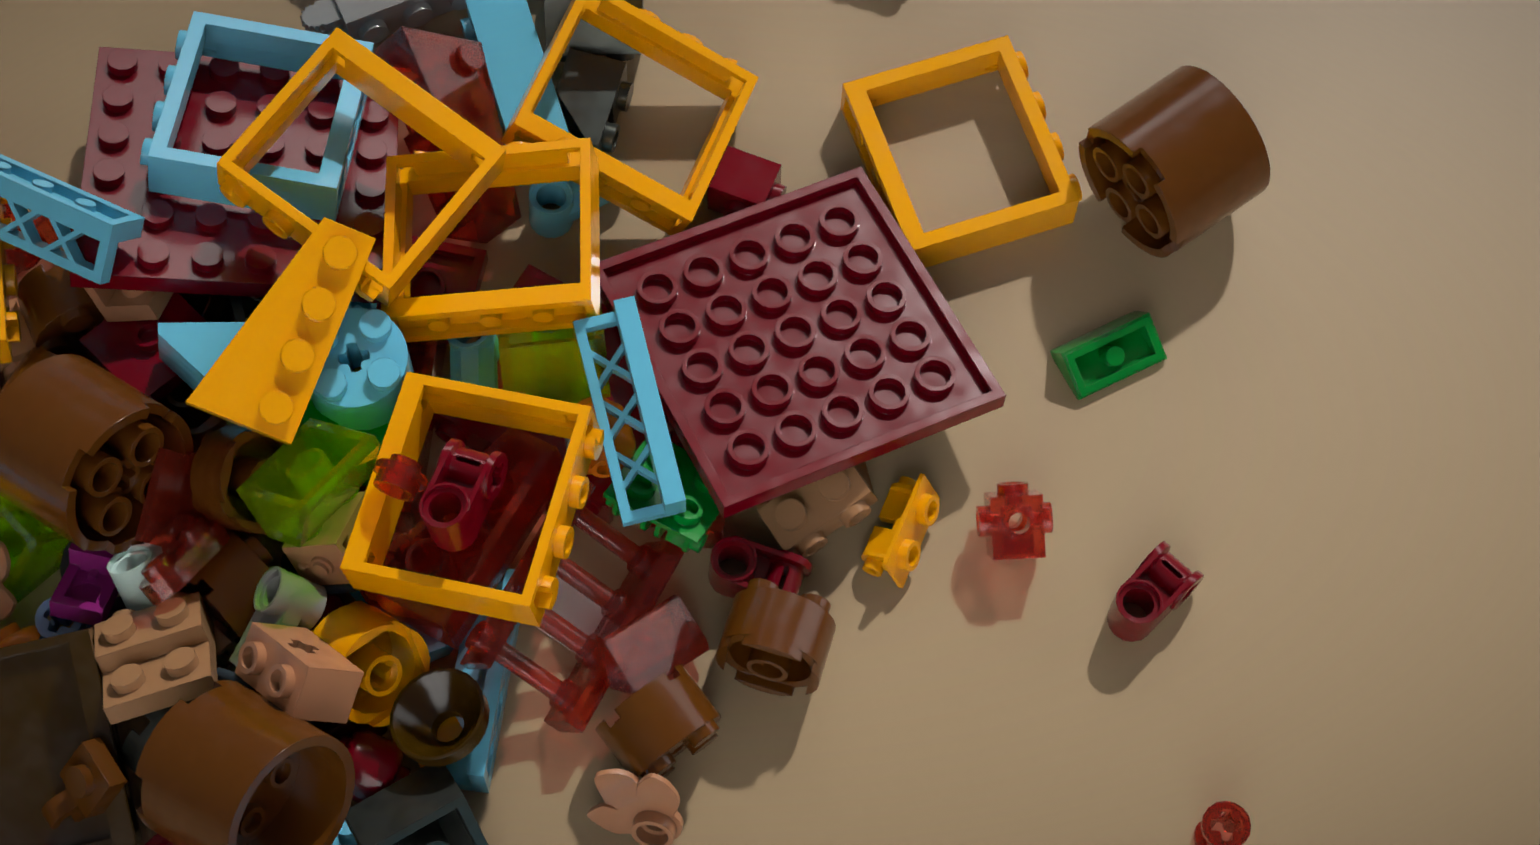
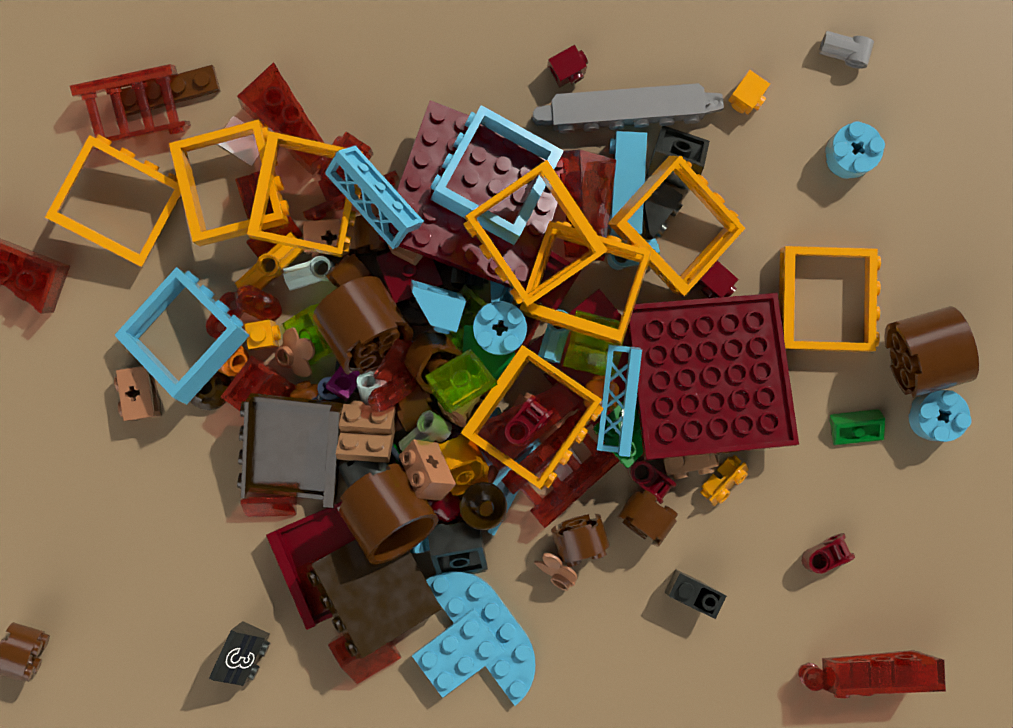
camera: 30 degrees right, 20 degrees up
(90, 783) = (320, 477): reddish brown plate -> none
(282, 347) = (470, 321): light orange wedge -> none
(399, 477) = (501, 403): clear red plate -> none
(651, 645) = (590, 501): clear red slope -> none
(926, 752) = (695, 594): none -> pearl dark grey slope
(1025, 537) = (778, 500): clear red brick -> none
(1244, 274) = (953, 420): none -> medium azure brick
(1348, 762) = (883, 674): none -> clear red wedge

